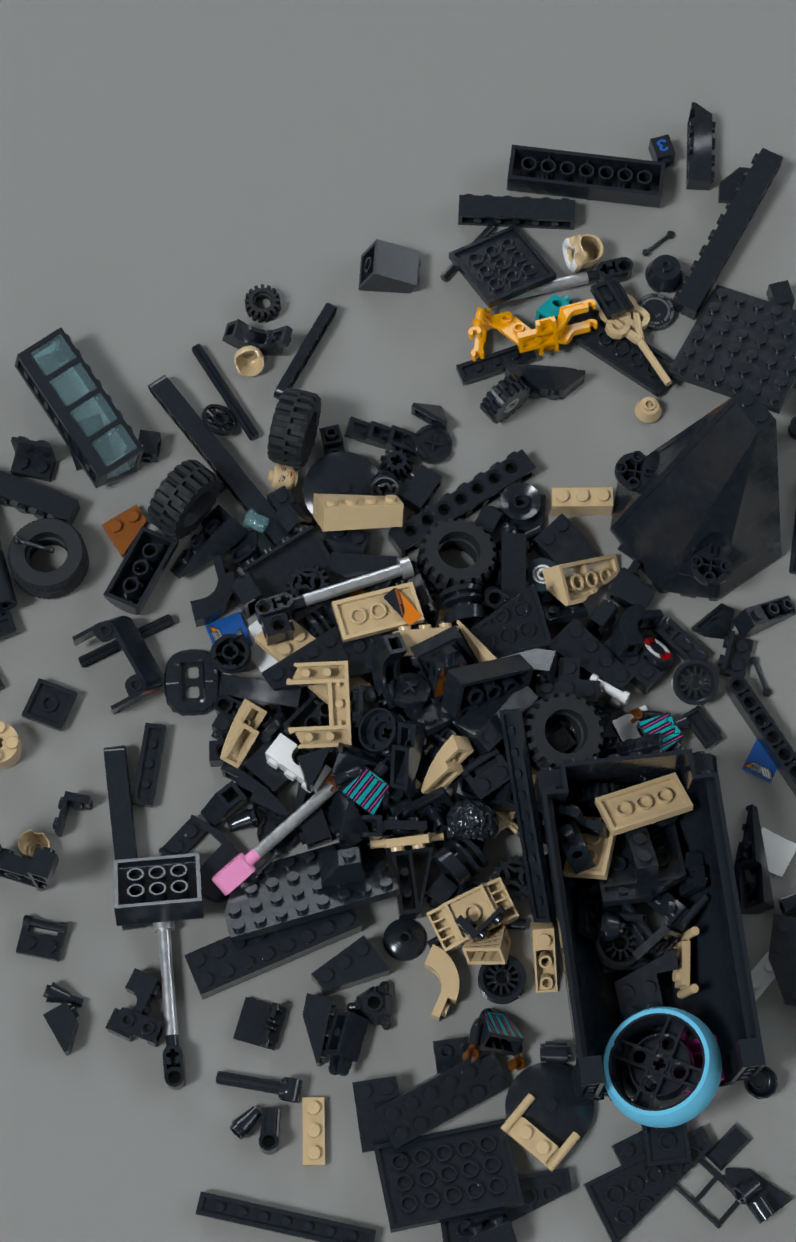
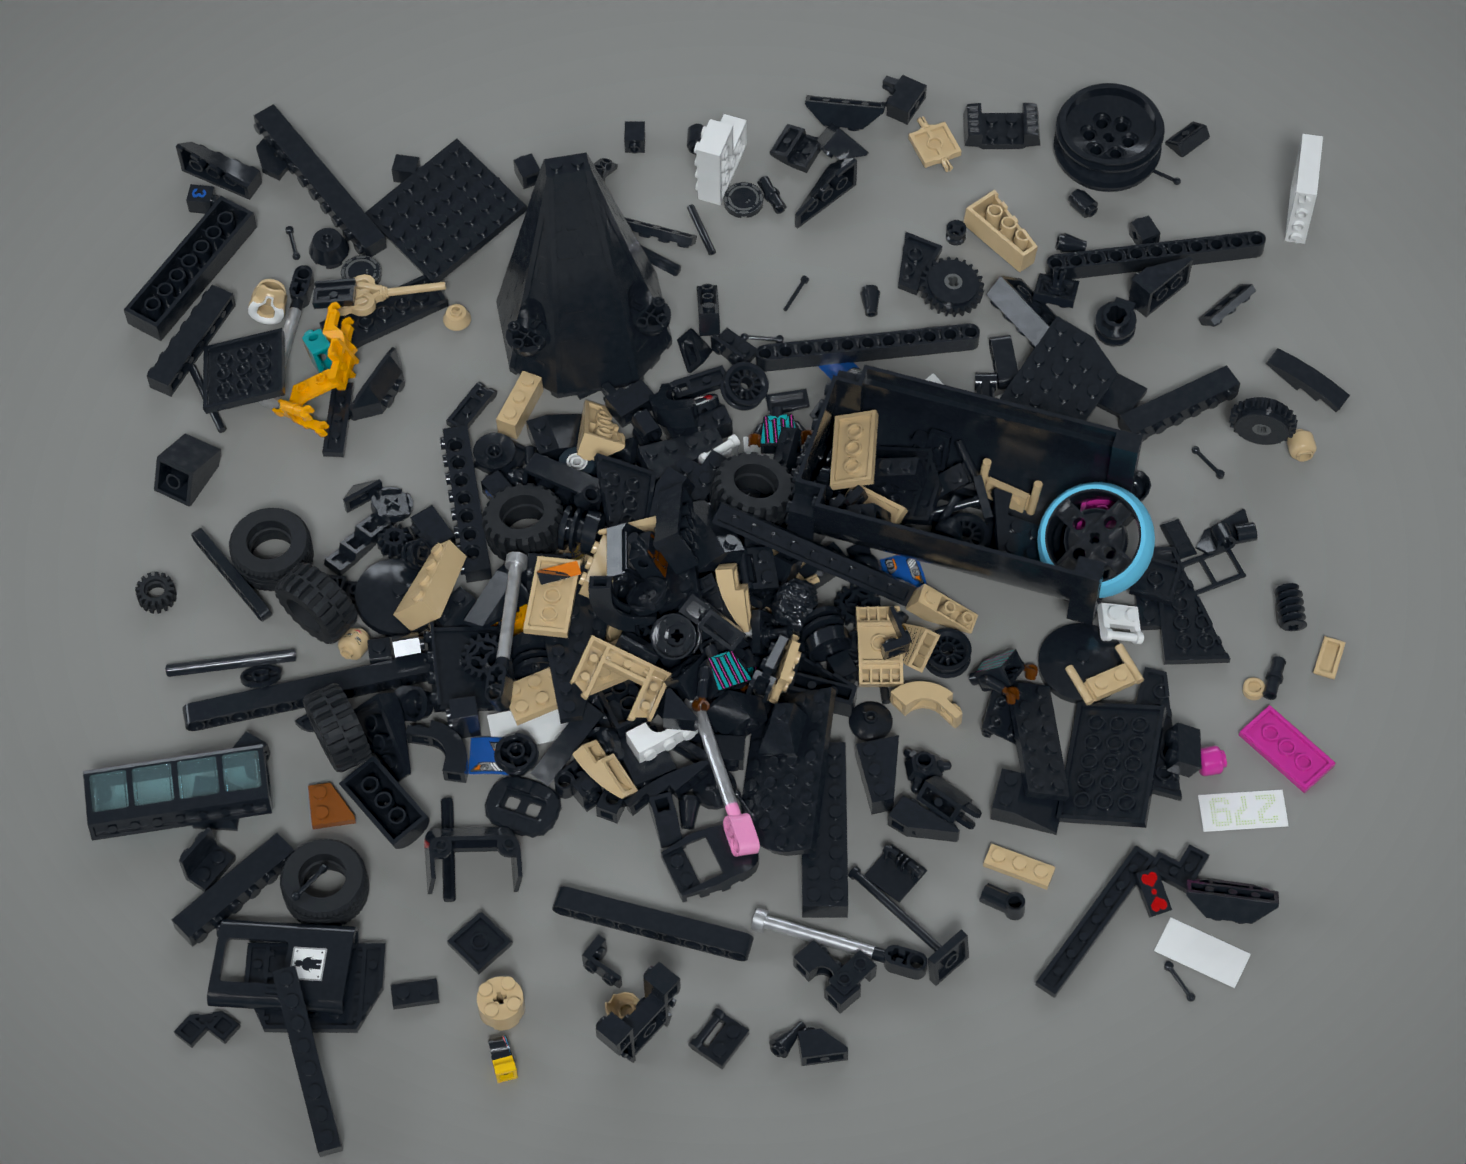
camera: 65 degrees left, 10 degrees down
(149, 765) = (589, 873): black plate -> none
(157, 889) = (726, 903): black slope -> none
(188, 1101) = (946, 957): none -> black tile
(245, 1122) = (986, 920): black cone -> none
(249, 361) = (213, 625): tan hair -> none
(255, 521) = (392, 678): clear light blue bush -> none
(268, 341) = (197, 609): black arch -> none
(277, 636) = (524, 699): black brick -> none
(288, 1088) = (970, 871): black axle -> none
(340, 346) = (265, 526): none -> black tyre
(505, 398) = (384, 420): black wheel -> none
(555, 1052) = (1035, 636): black brick -> none
(562, 463) = (471, 406): none -> black plate
(609, 1123) = (1119, 617): none -> white plate

